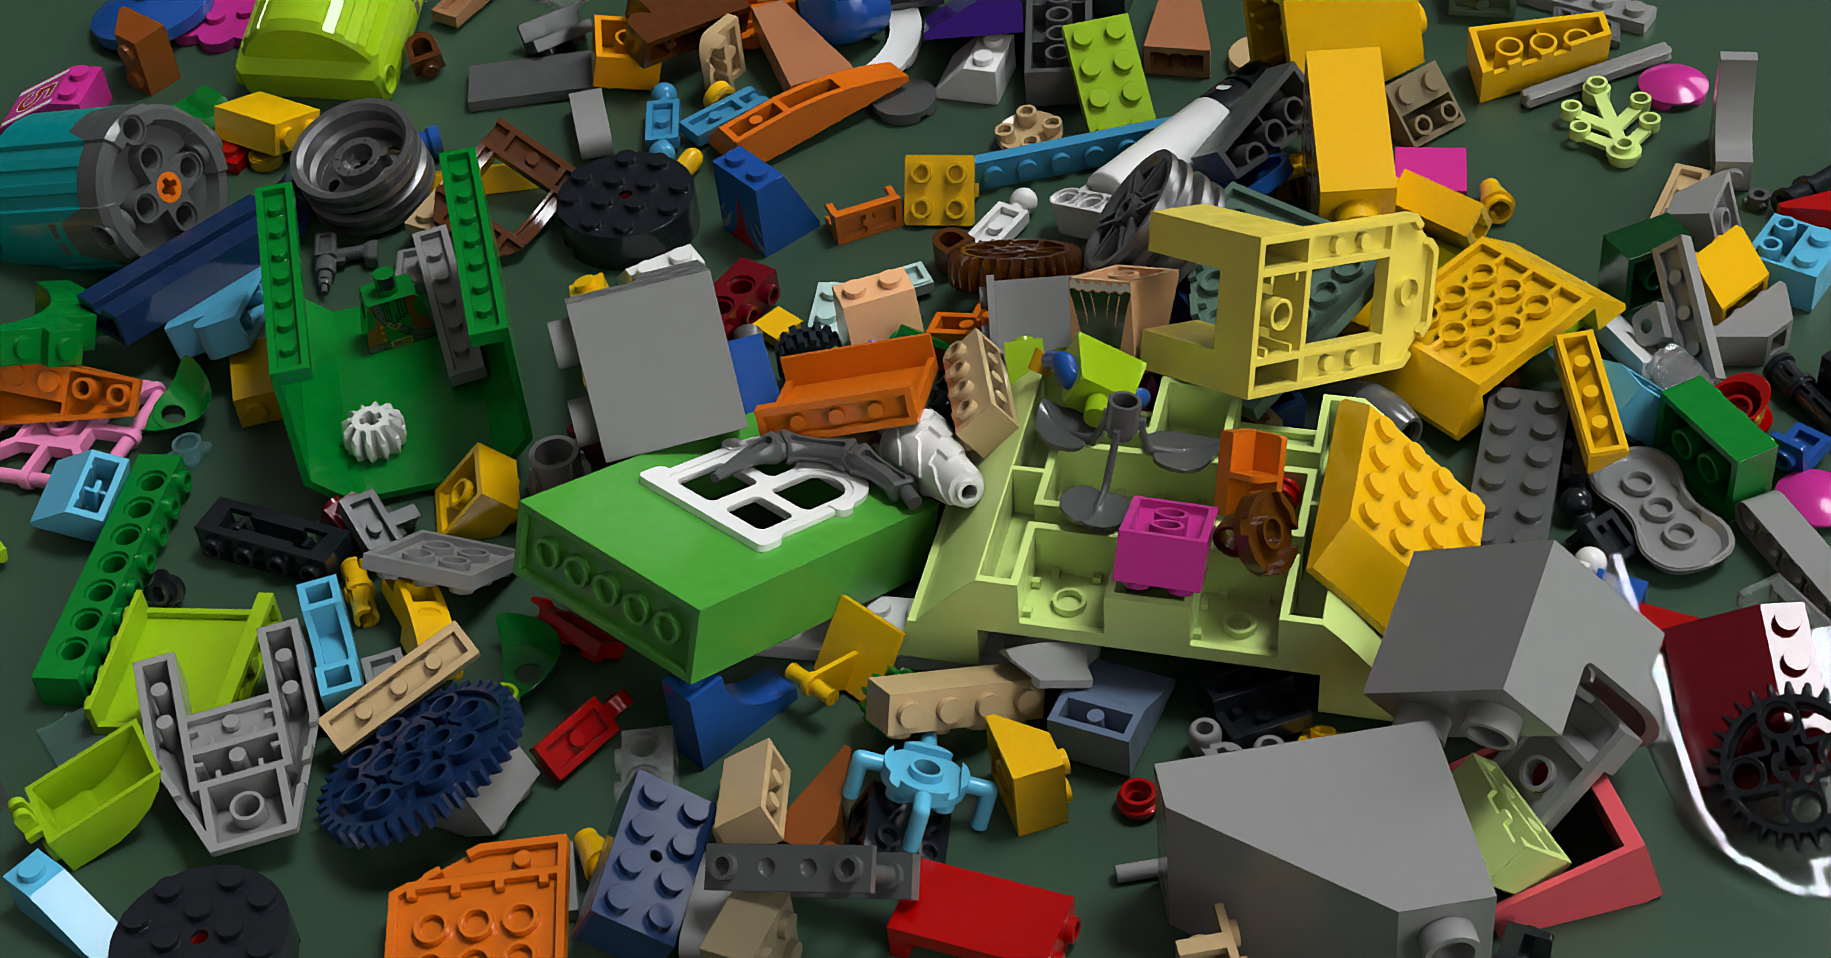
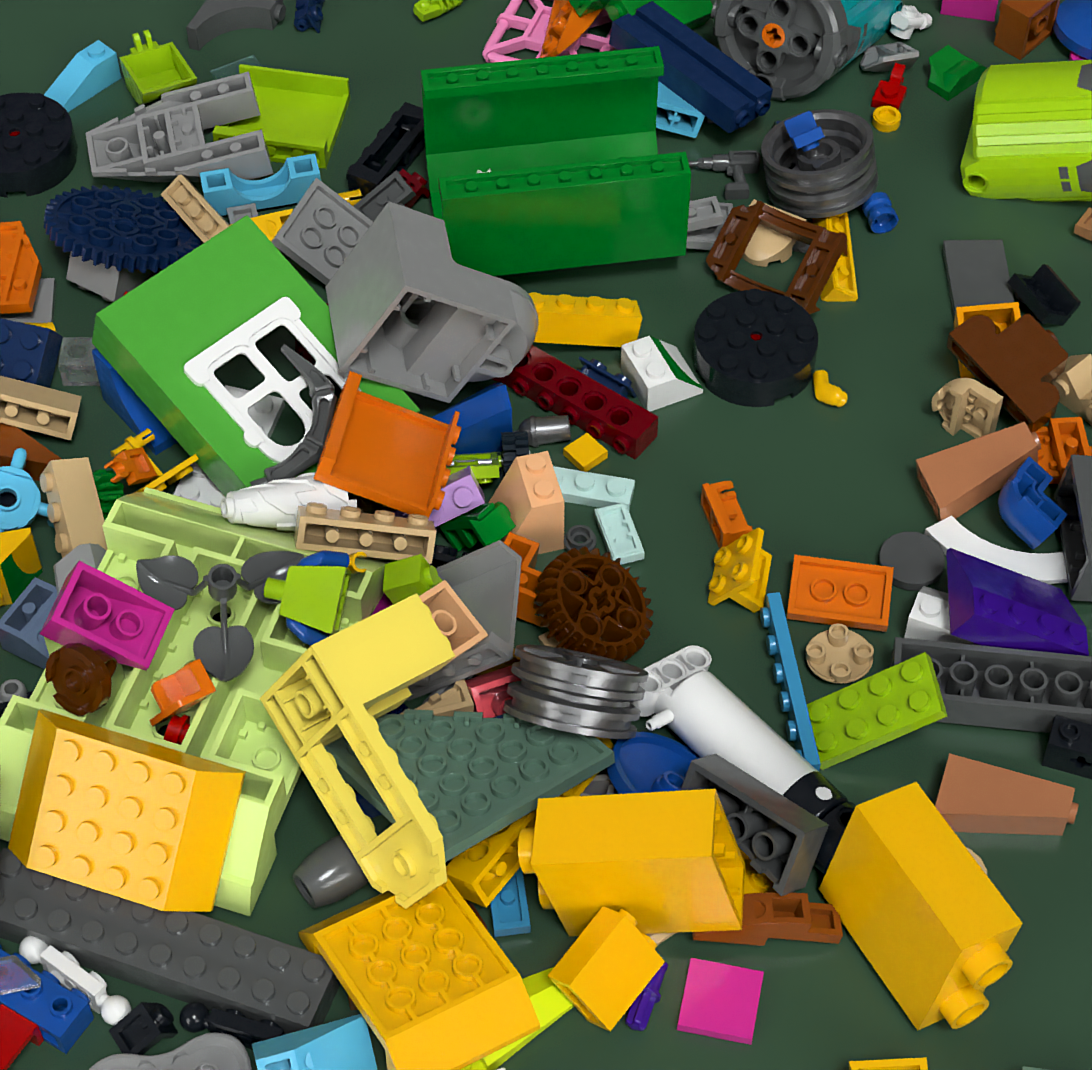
camera: 90 degrees right, 10 degrees up
(81, 494) = (457, 44): medium azure slope -> none
(112, 574) = (366, 68): green brick -> none
(172, 586) = (358, 100): black plate -> none
(263, 122) = (913, 107): yellow brick -> none
(340, 156) = (804, 131): none -> blue bracket
(424, 54) = (1015, 205): reddish brown plate -> none
(591, 124) = (896, 324): light grey beam -> none
(662, 120) = (890, 375): dark azure plate -> none
(705, 122) = (899, 422): dark azure plate -> none
(717, 92) = (924, 416): yellow tile -> none
(760, 203) = (736, 432): blue slope -> none
(806, 110) = (880, 471): orange wedge -> none
(857, 665) = (132, 466): none -> orange plate
(944, 241) = (654, 574): reddish brown plate -> none
(956, 126) = (840, 593): none -> orange plate
(1006, 219) = (693, 619): white plate -> none
(1421, 106) = (827, 1000): dark tan slope -> none
(1497, 201) = (656, 1047): yellow cone -> none
(1589, 399) = (274, 1022): yellow slope -> none

